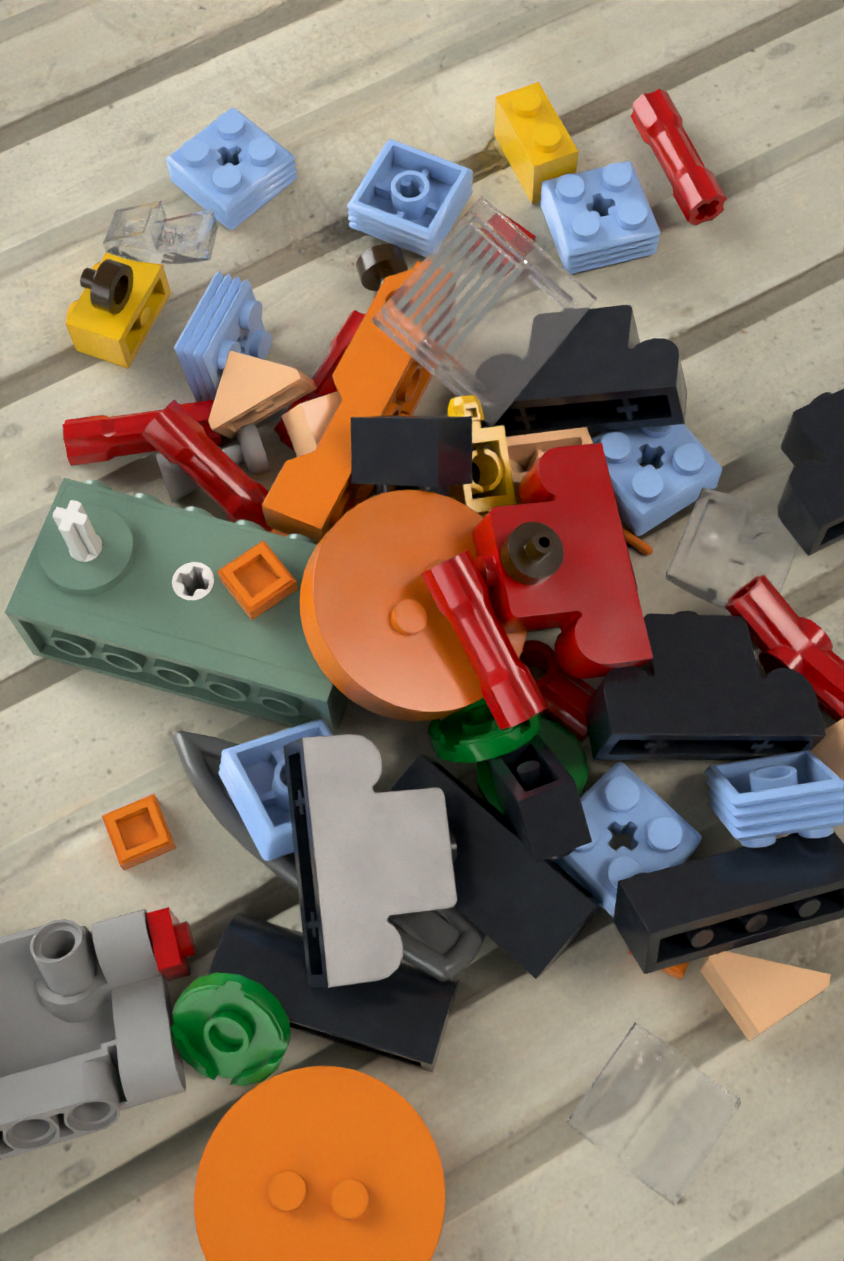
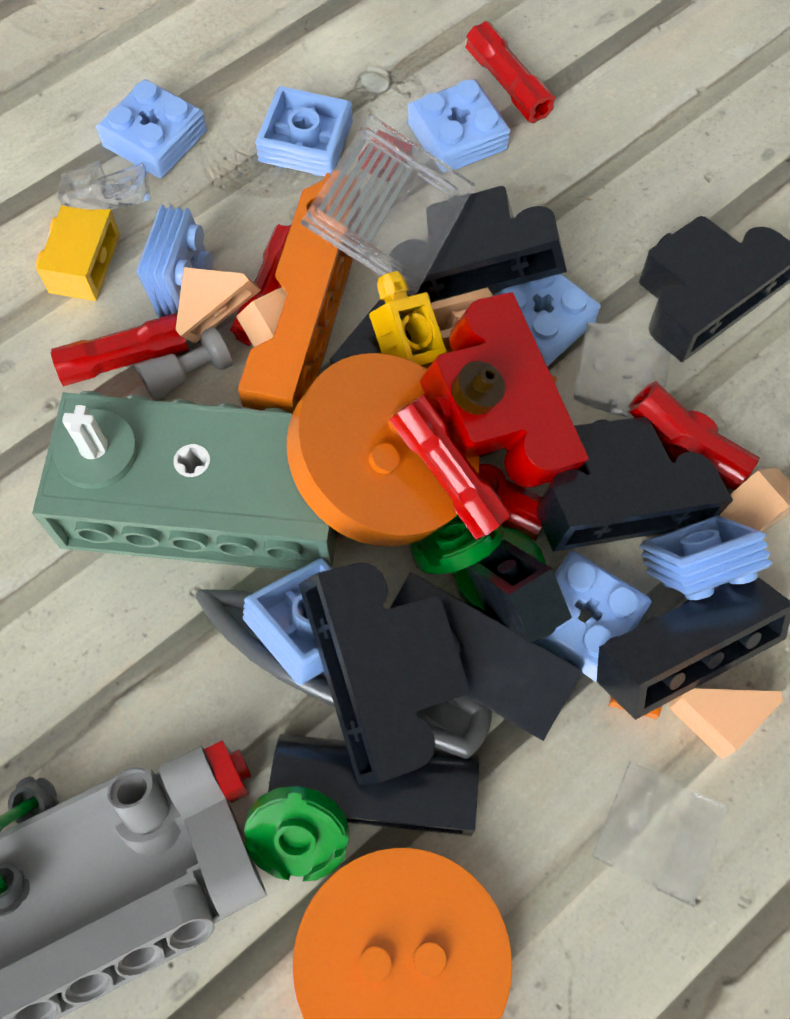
camera: 15 degrees left, 0 degrees up
(109, 285) = (69, 230): dark brown tile -> none
(139, 832) = (181, 681): orange tile -> none
(188, 446) = (161, 350): red axle -> none
(257, 580) = (247, 449): orange tile -> none
(378, 264) = (289, 187): dark brown tile -> none
(411, 452) = (356, 323): black brick -> none
(533, 138) = (393, 72): yellow brick -> none

